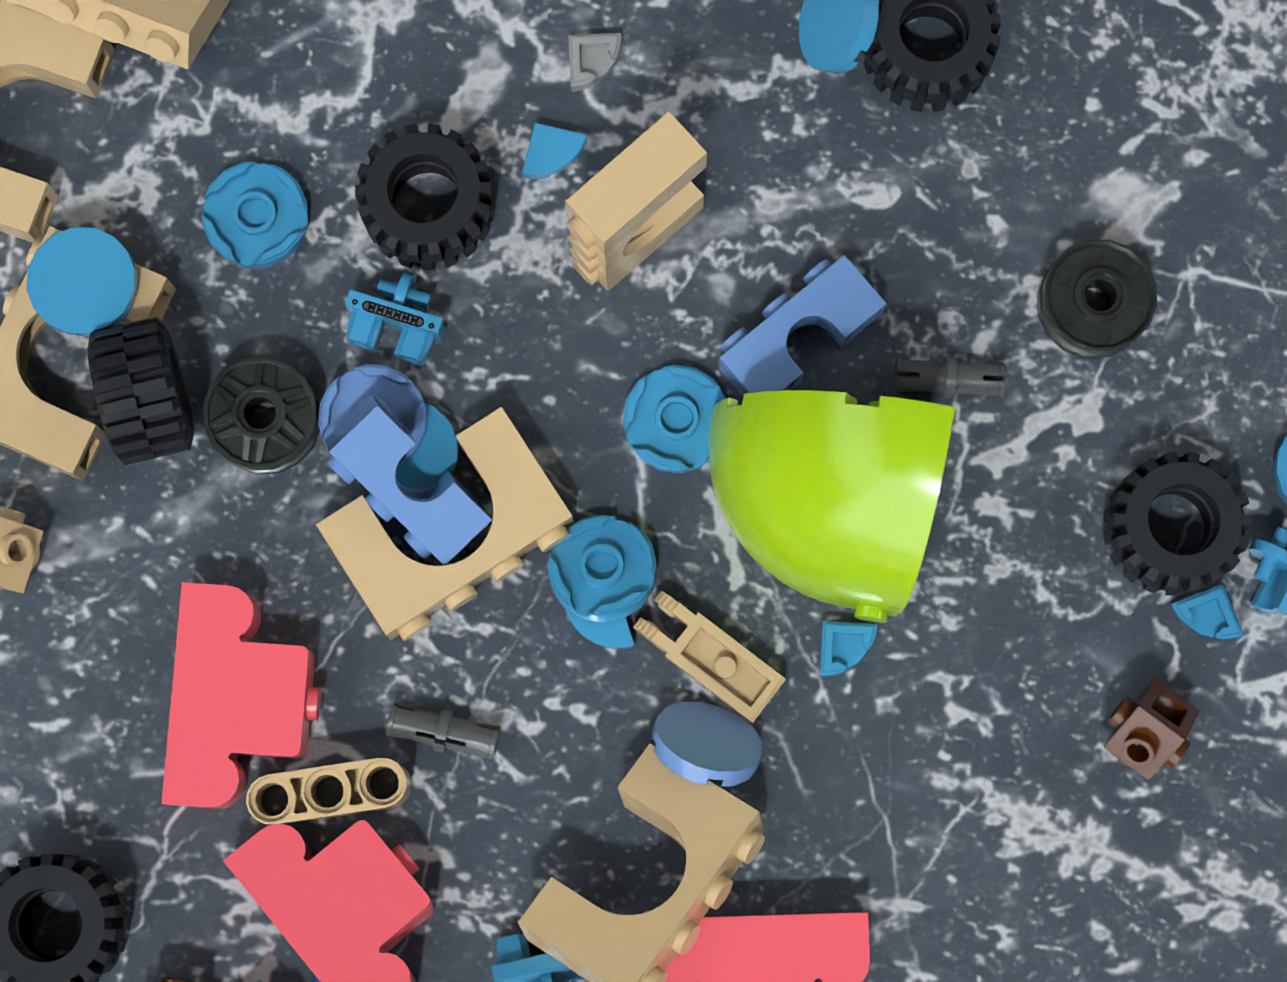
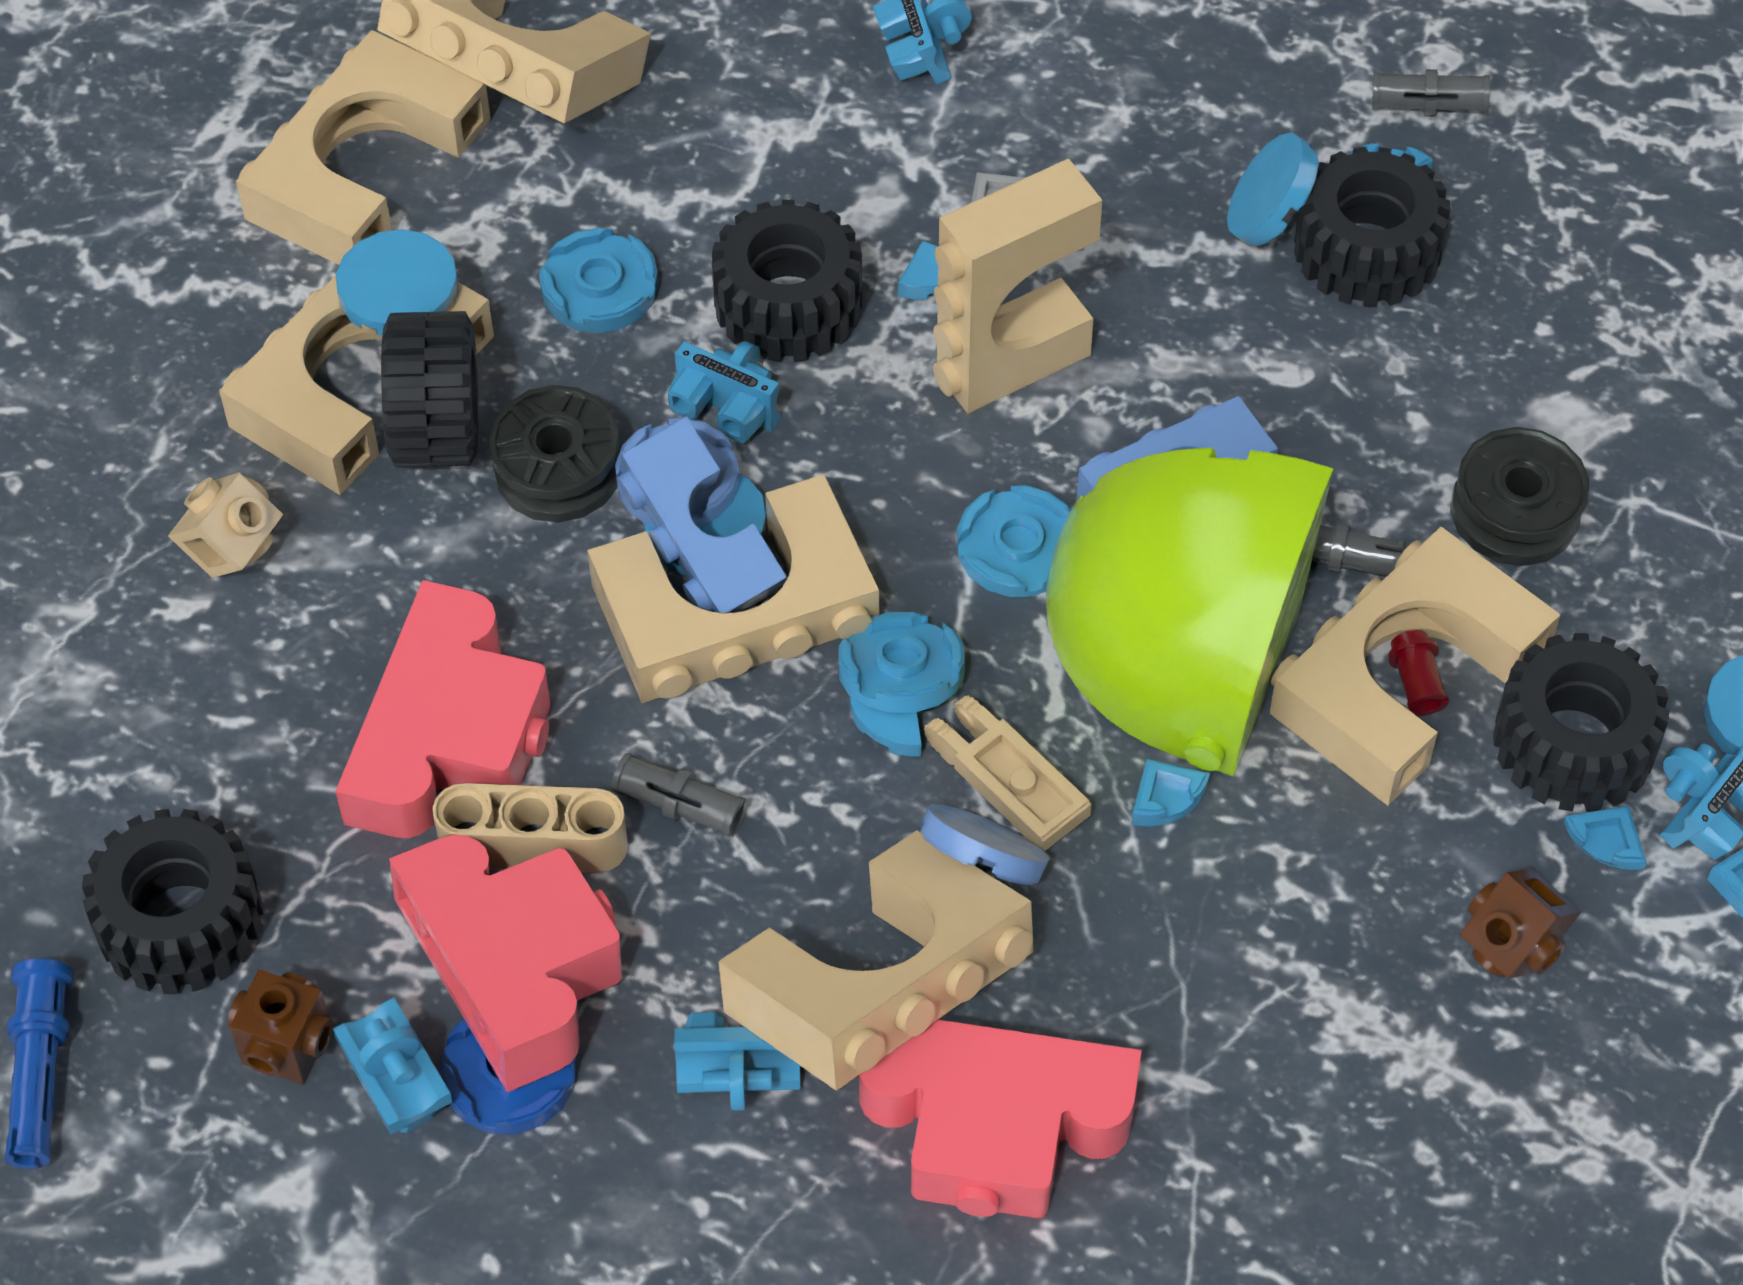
camera: 10 degrees right, 25 degrees down
(1034, 491) = (1414, 658): none -> dark red pin
(1041, 411) = (1435, 589): none -> tan arch

